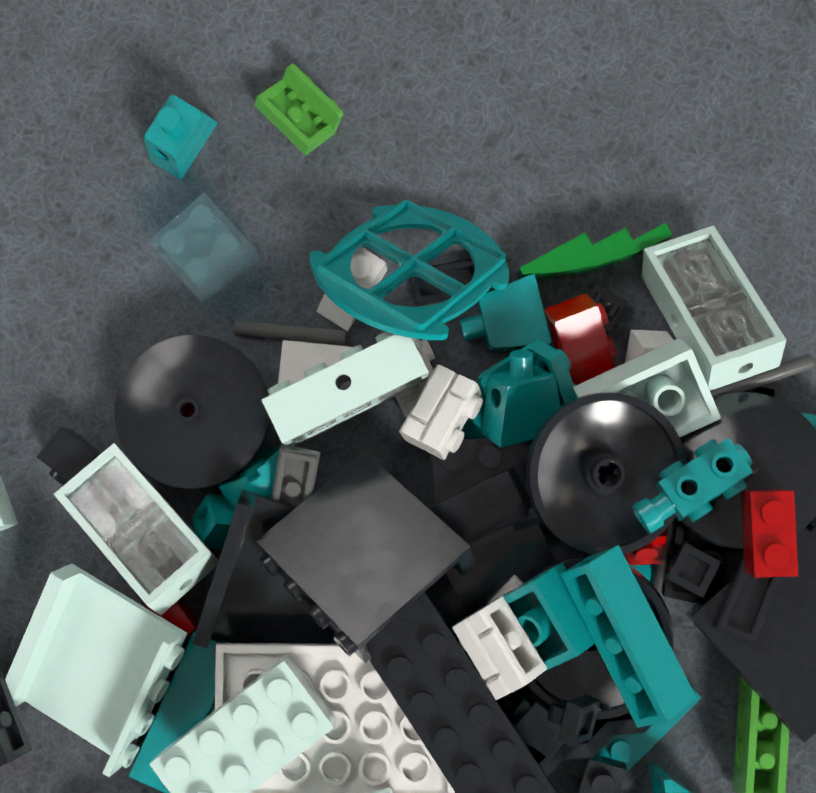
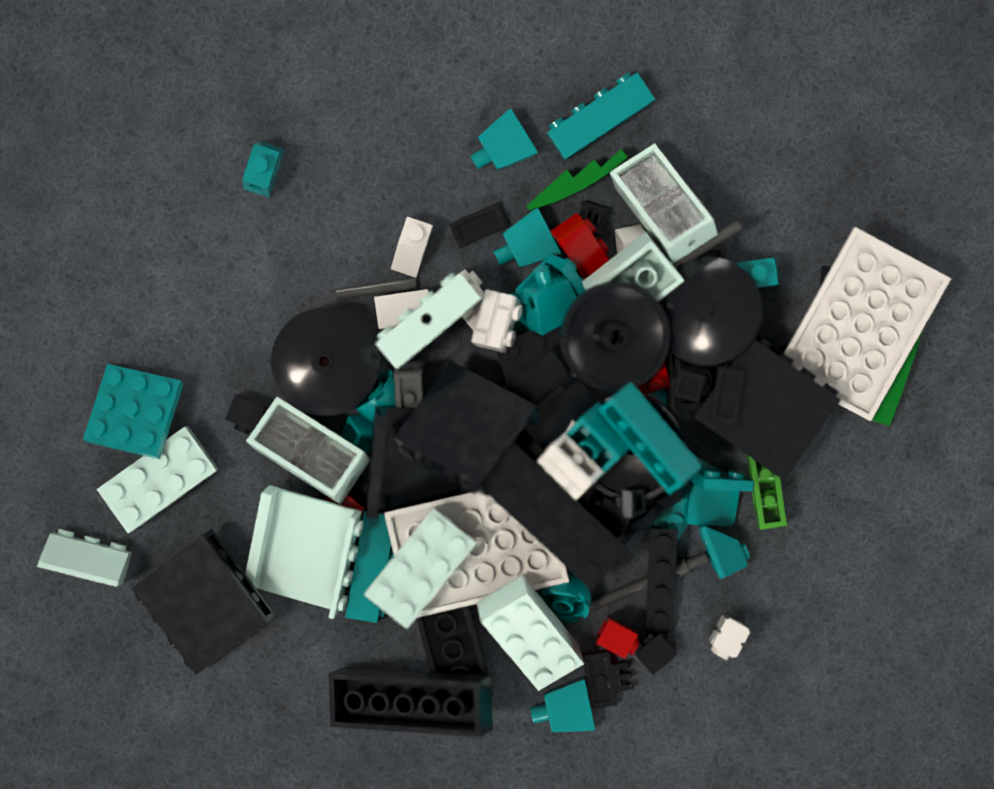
camera: 20 degrees left, 5 degrees up
(203, 248) = (301, 244): clear light blue brick -> none
(300, 110) = (343, 128): bright green bracket -> none
(336, 280) = (428, 262): teal window -> none
(508, 181) = (504, 143): none -> teal torso
(645, 175) = (600, 116): none -> teal brick
(691, 736) = (715, 497): none -> teal bracket
(706, 479) = (680, 329): teal brick -> none
(769, 533) = (726, 350): red brick -> none

